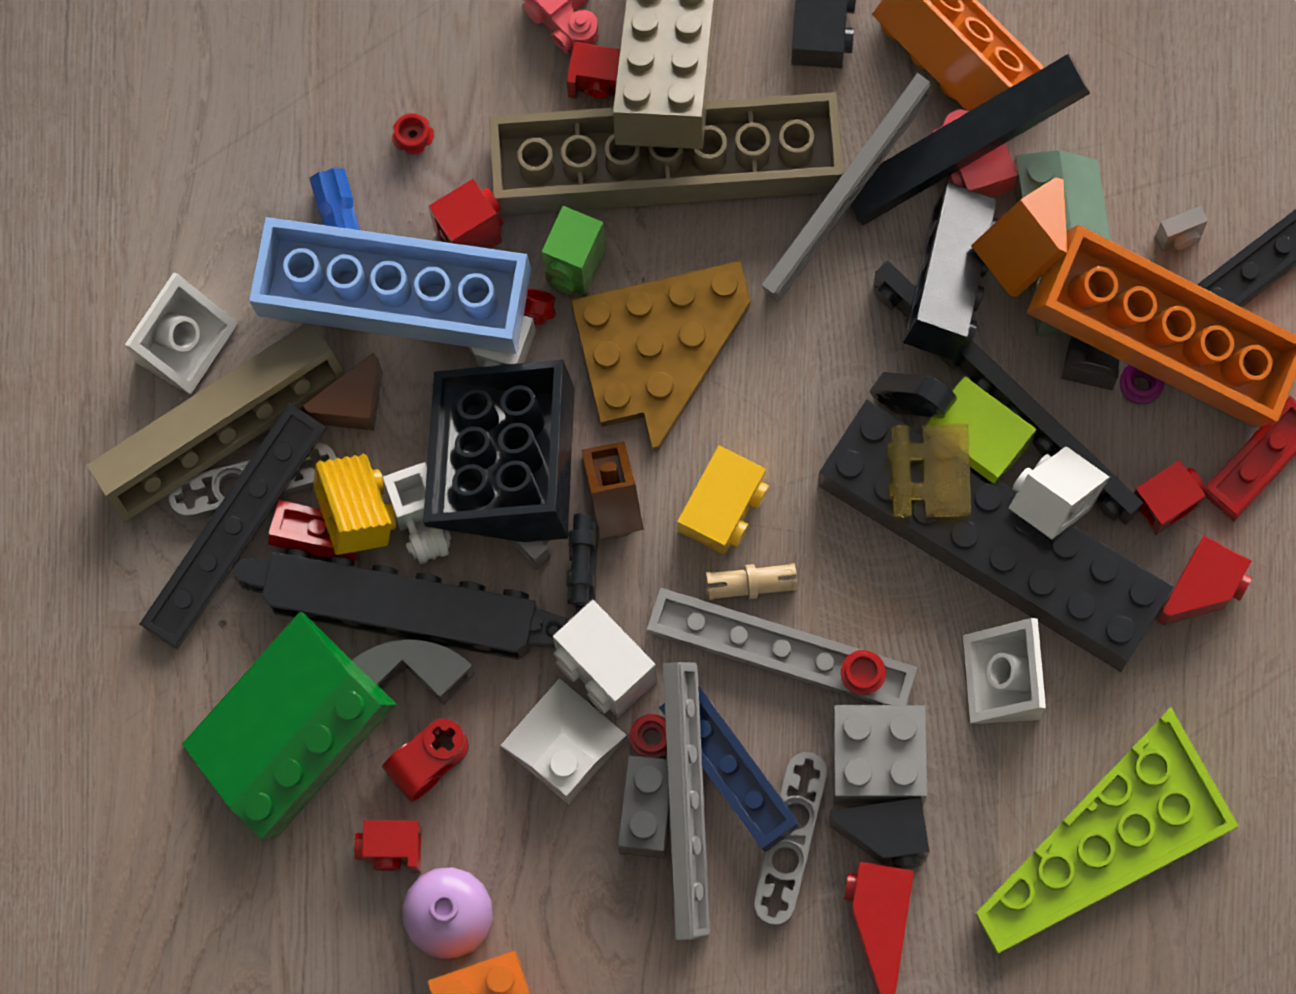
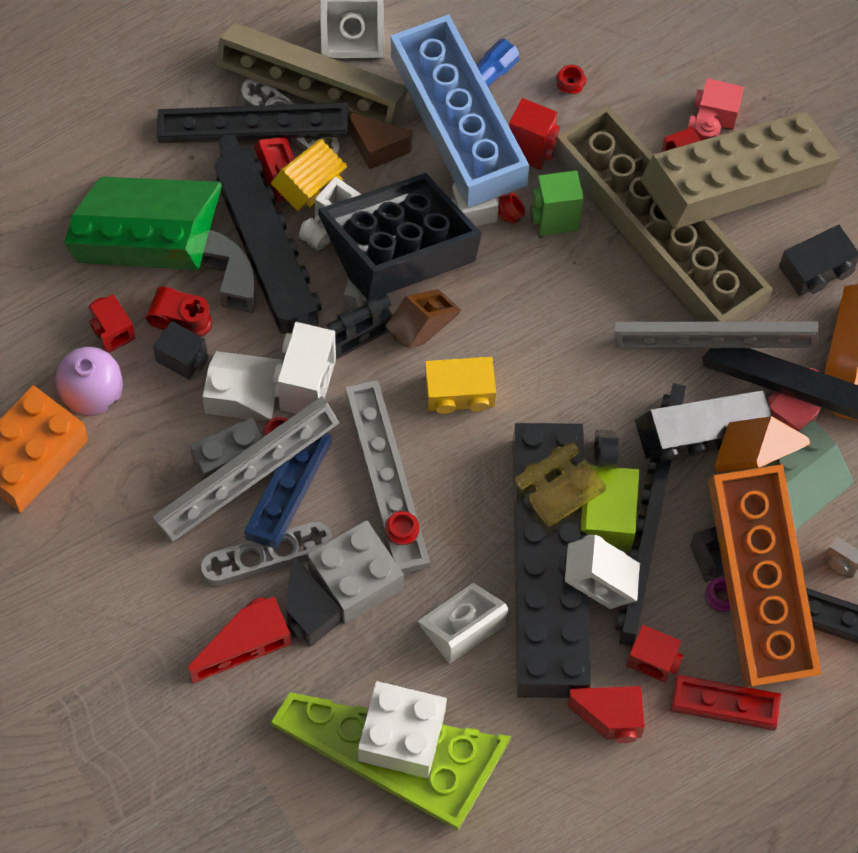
camera: 50 degrees right, 10 degrees down
(480, 784) = (181, 350): none -> black brick
(657, 343) = (538, 292): pearl gold wing -> none
(751, 581) = (419, 432): tan pin -> none
(1103, 817) = (402, 729): none -> white brick

